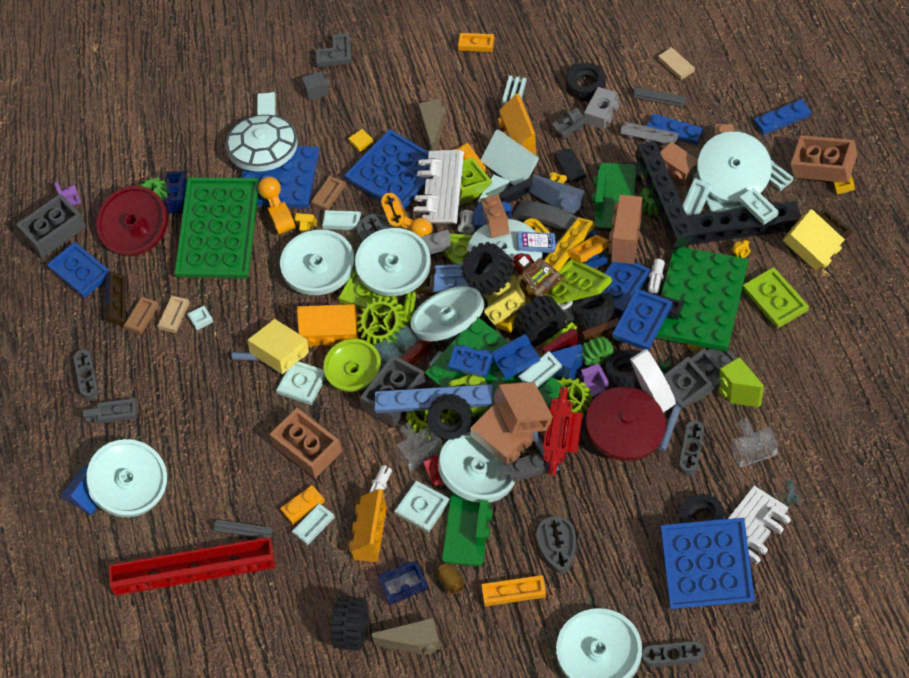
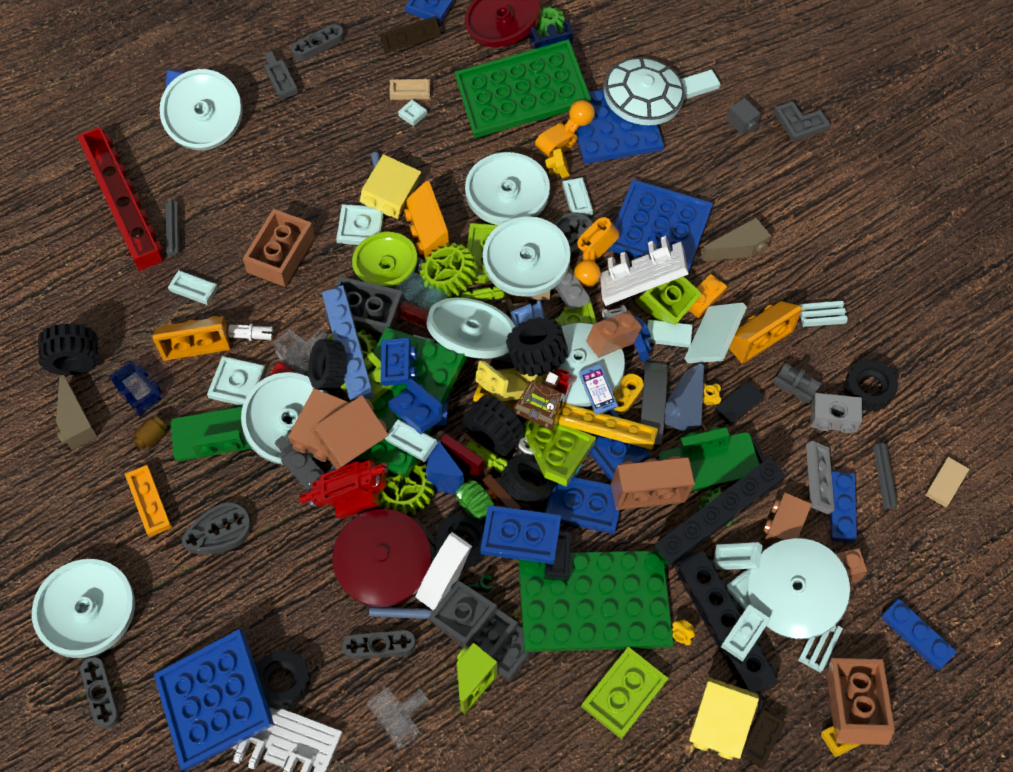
camera: 65 degrees right, 5 degrees up
(141, 315) = (400, 63): medium nougat tile -> none
(302, 505) = (213, 271): light orange plate -> none
(328, 193) = (607, 174): medium nougat tile -> none
(360, 140) = (690, 183): yellow tile -> none
(476, 42) = (876, 253): light orange plate -> none
(516, 191) = (671, 352): black tile -> none
(588, 248) = (611, 449): light orange plate -> none
(594, 380) = (439, 510): medium lavender panel -> none
(656, 276) = (609, 541): white axle -> none

